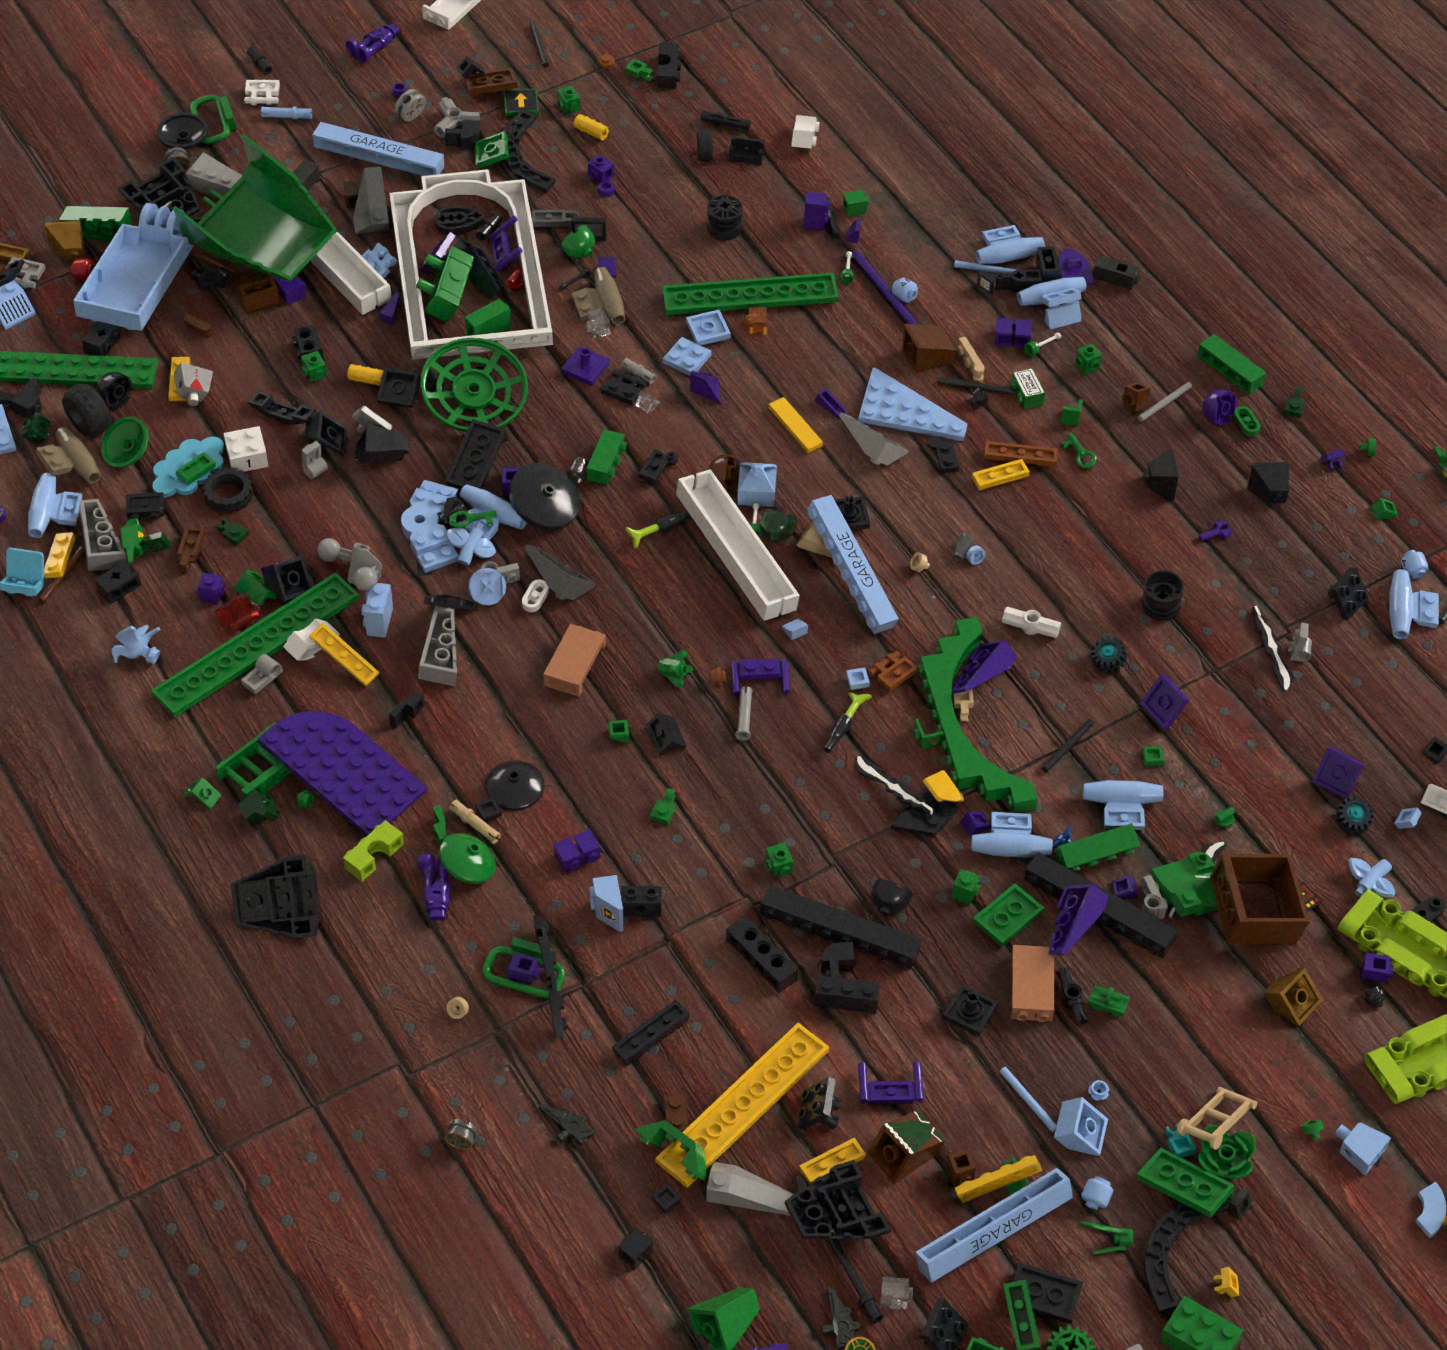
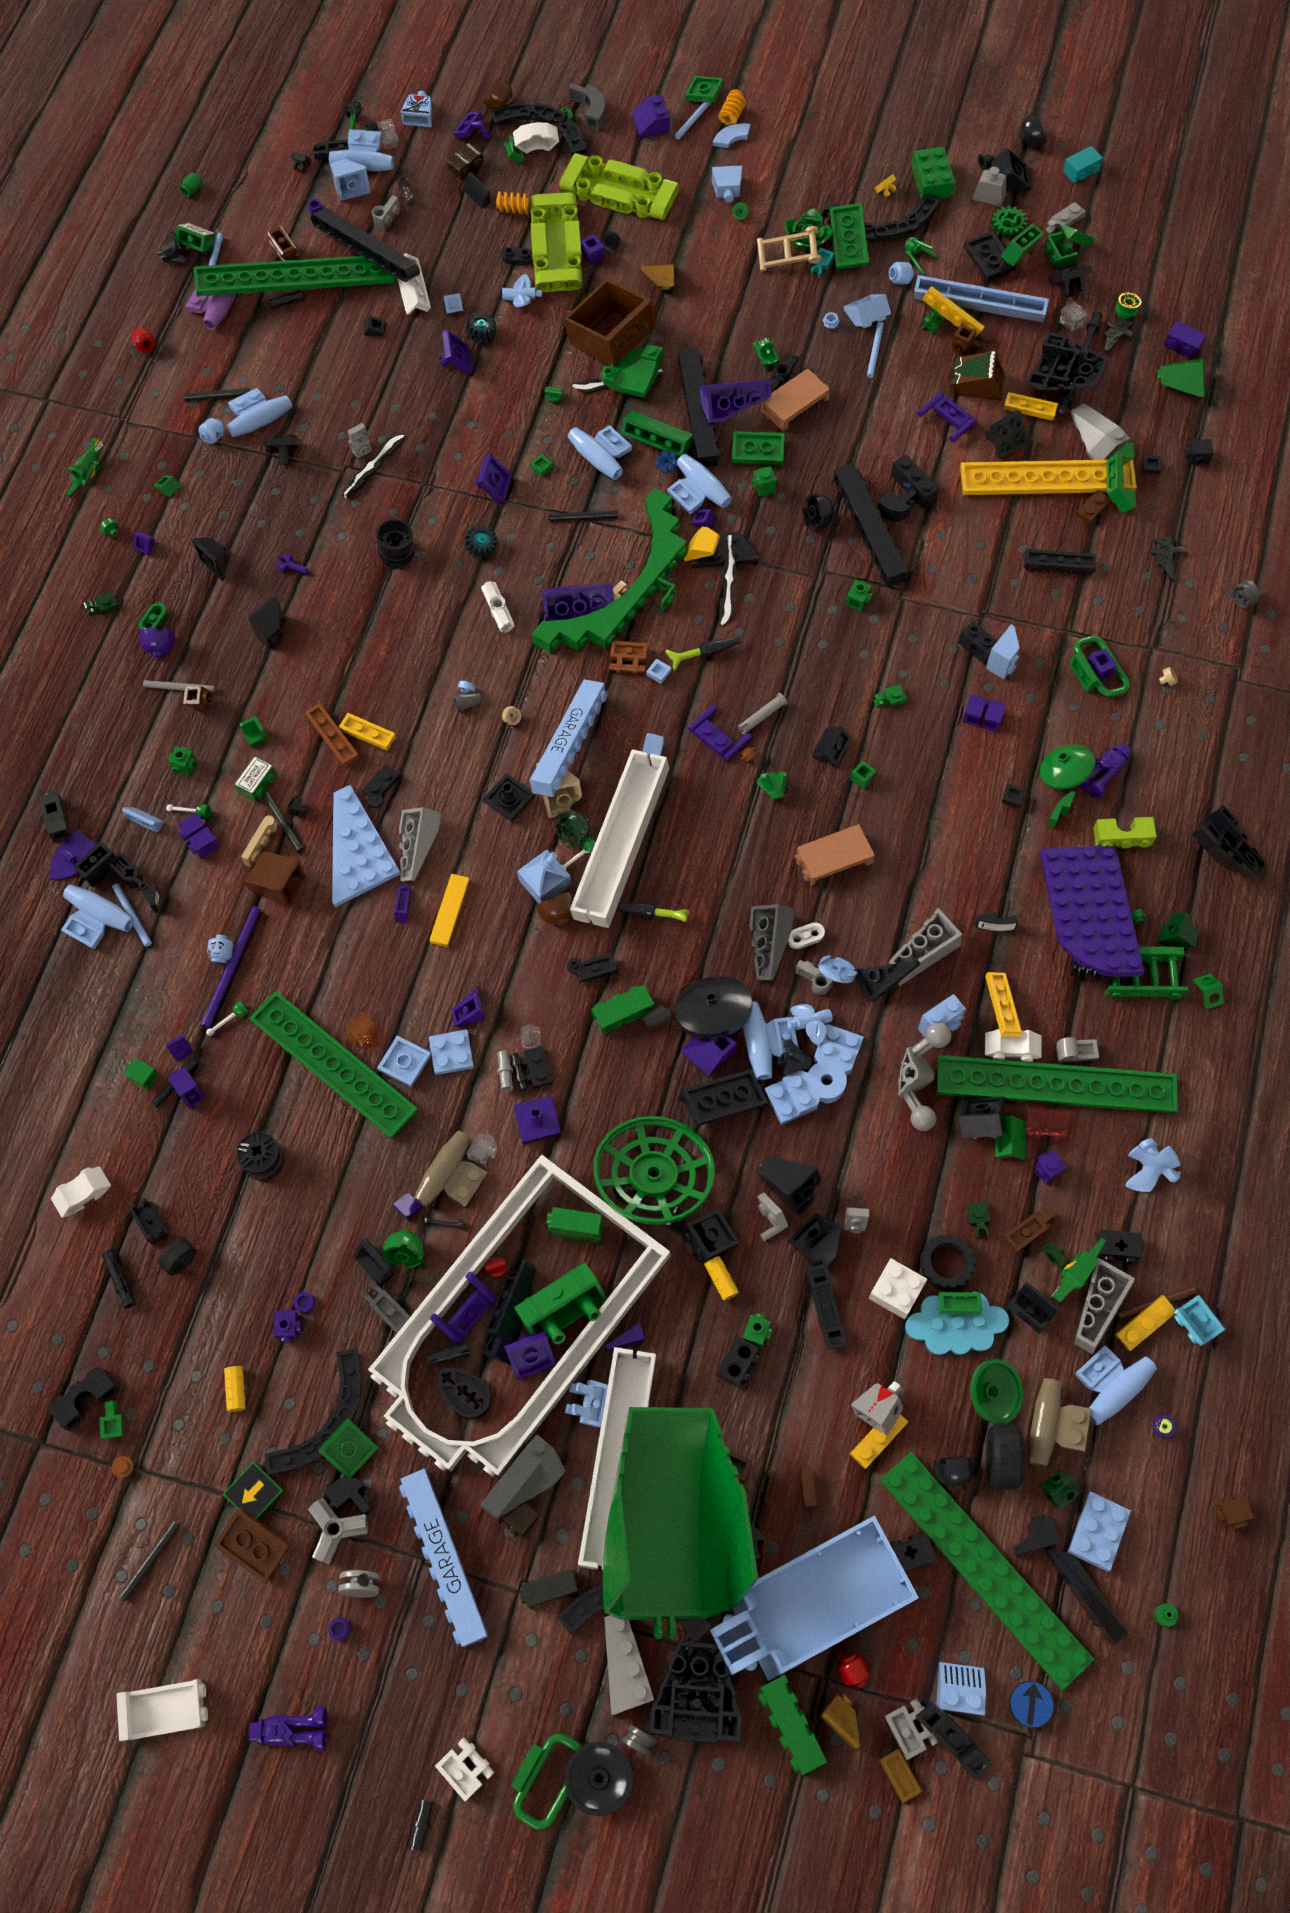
camera: 130 degrees left, 15 degrees up
(293, 113) = (474, 1714): light blue pin -> none
(468, 816) = (1032, 802): tan pin -> none
(469, 67) = (255, 1577): black panel -> none
(488, 515) = (779, 1021): green piece -> none
(515, 792) = (973, 812): black dish -> none
(549, 959) = (1111, 613): black plate -> none
(568, 99) = (214, 1444): green brick -> none
(777, 977) = (938, 537): black brick -> none
(970, 1010) = (850, 417): black plate -> none
(1053, 292) = (125, 835): light blue plate -> none
(1072, 440) = (283, 714): green piece -> none
(1125, 887) = (667, 408): dark purple slope -> none
(1153, 898) = (665, 381): light grey plate -> none
(1231, 364) = (96, 667): green brick -> none

